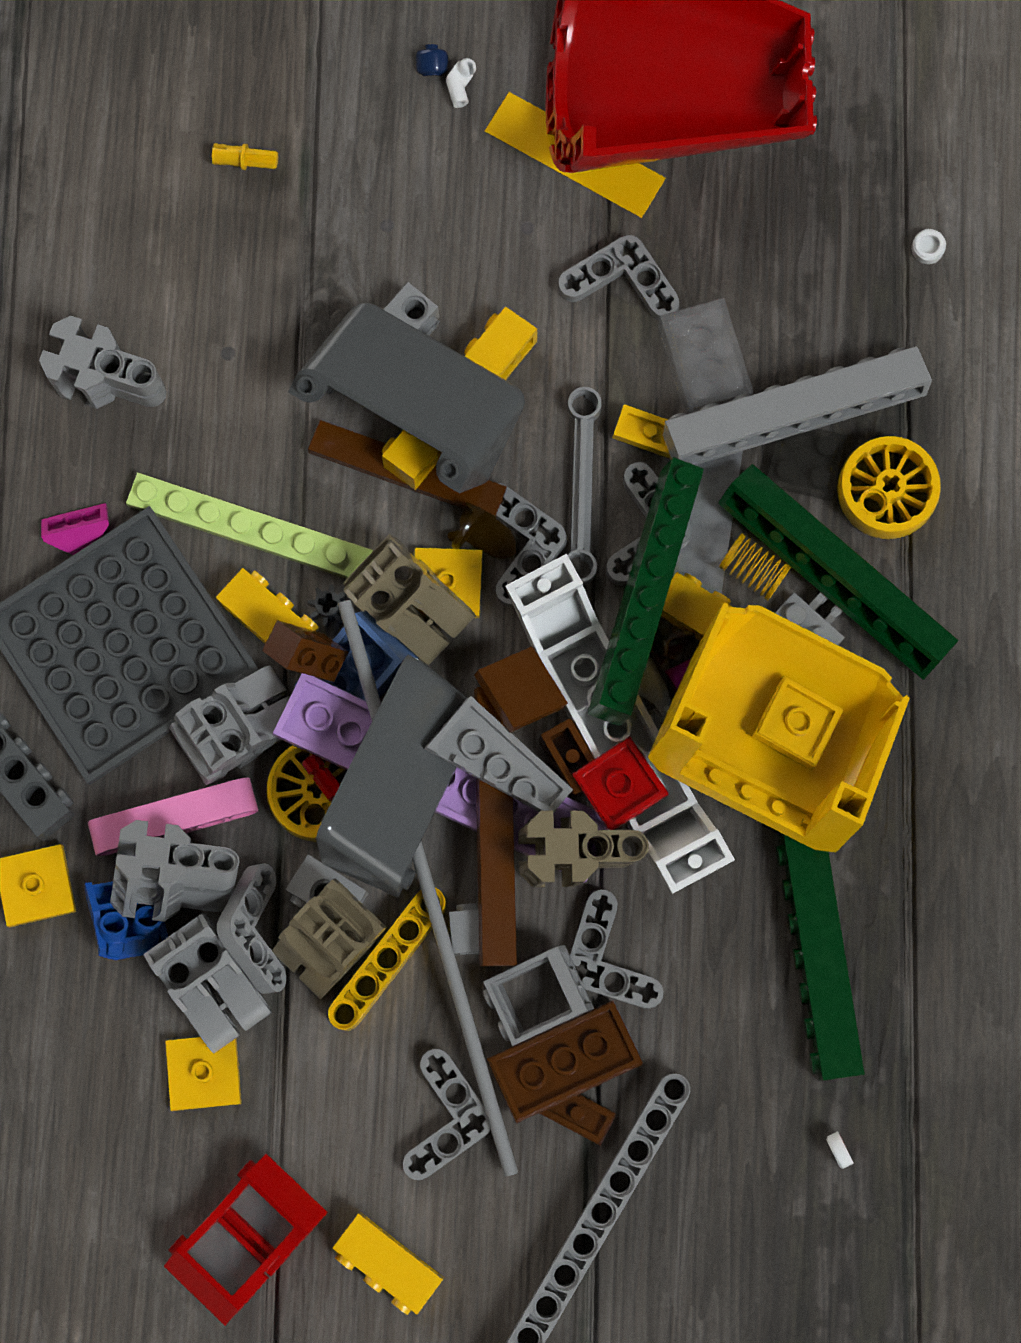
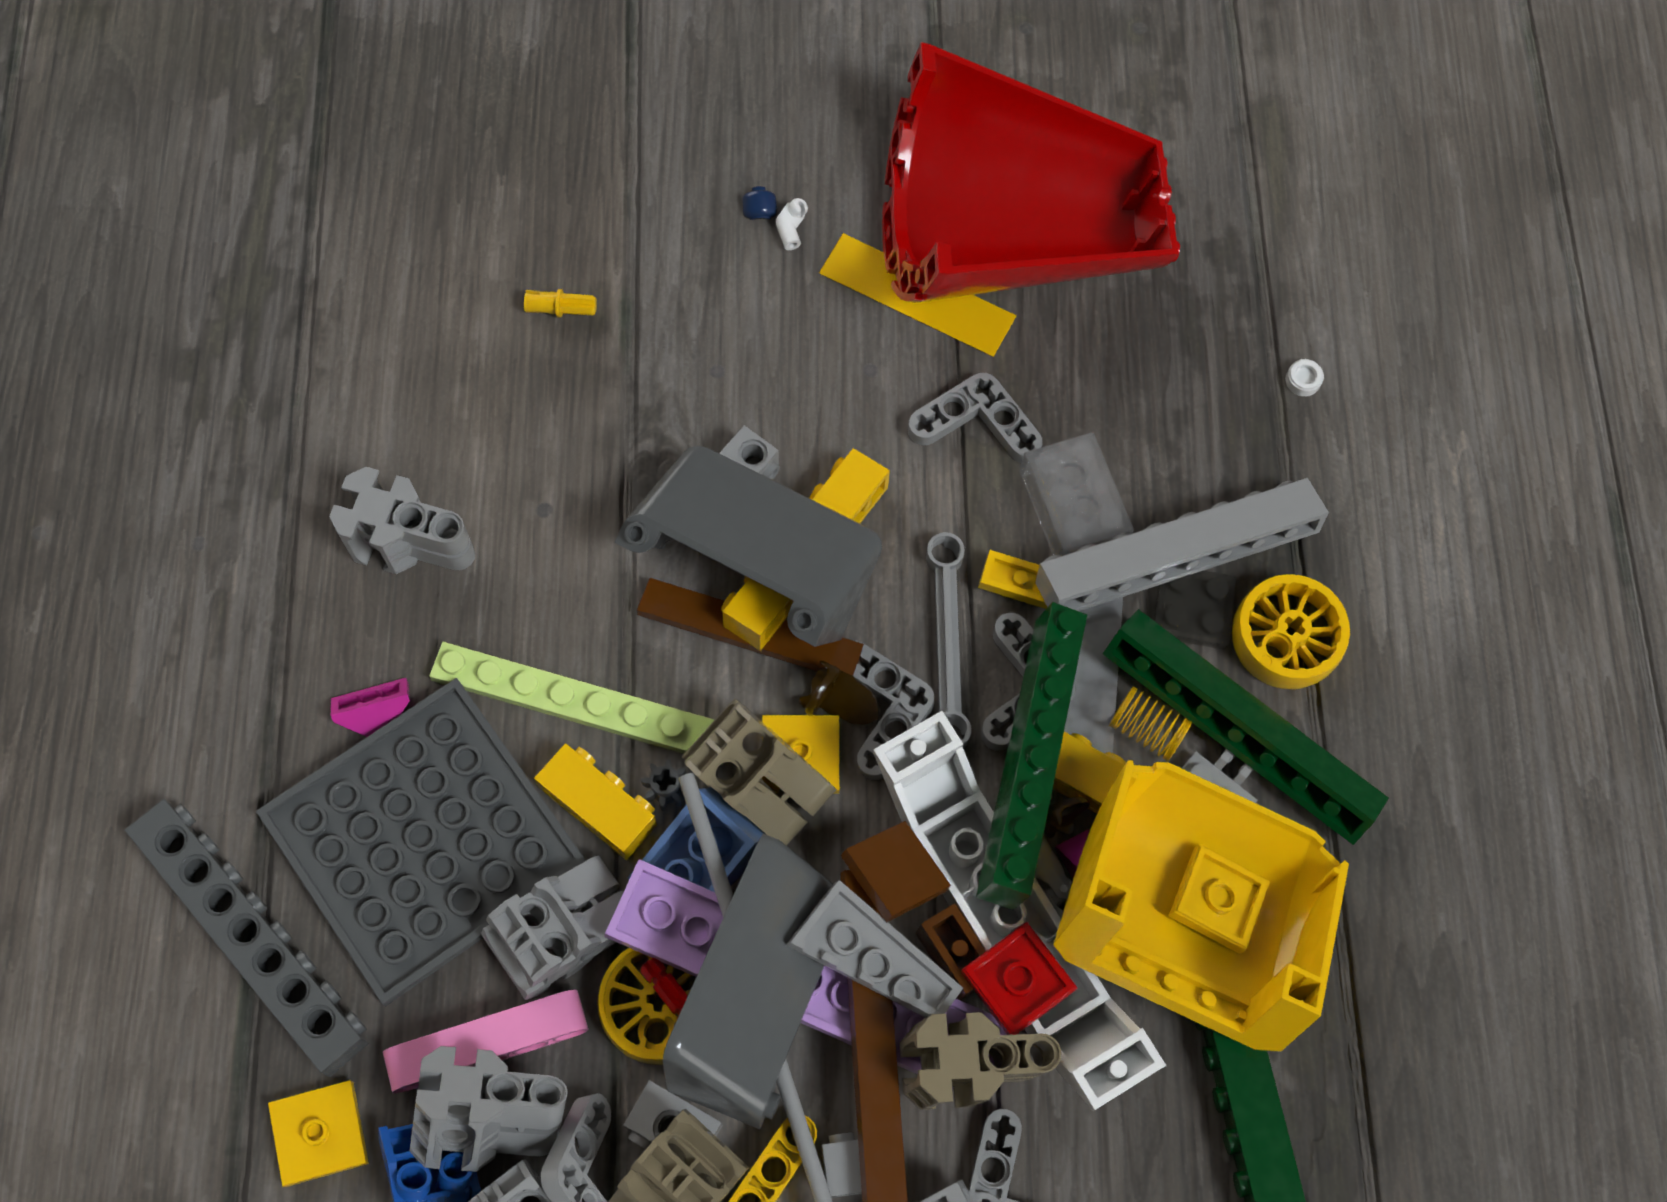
camera: 10 degrees left, 10 degrees down
(305, 651) = (641, 835): reddish brown brick -> none

